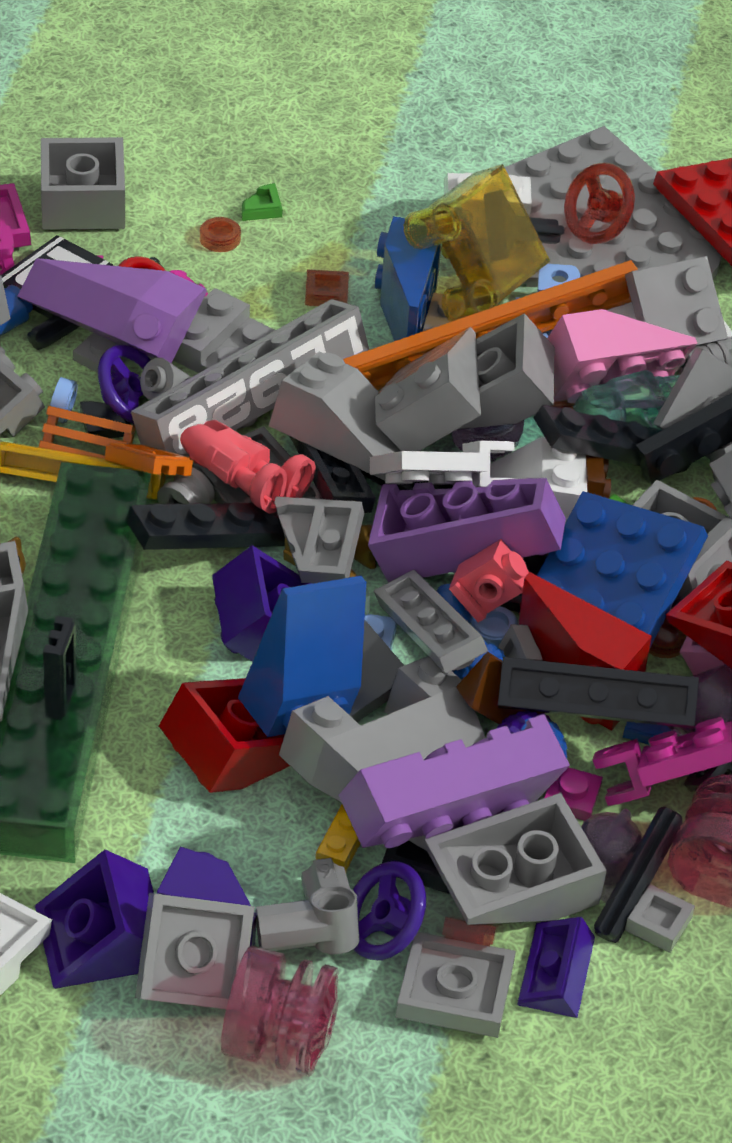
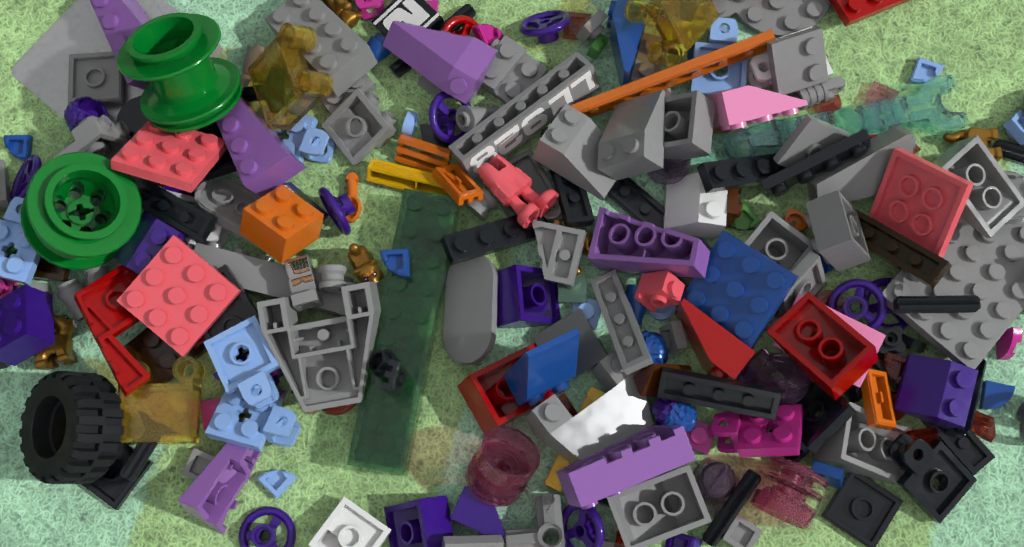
camera: 15 degrees right, 30 degrees up
(30, 665) = (379, 362): none -> black plate
(53, 543) = (397, 261): none -> blue tile
(175, 622) = (470, 310): none -> light grey tile
(244, 810) = (502, 466): none -> clear pink wheel
(278, 283) = (545, 25): none -> dark purple piece
(352, 276) = (592, 27): none -> light grey plate
(367, 304) = (597, 46): none -> bright green tile
(440, 467) = (638, 202): white plate -> none

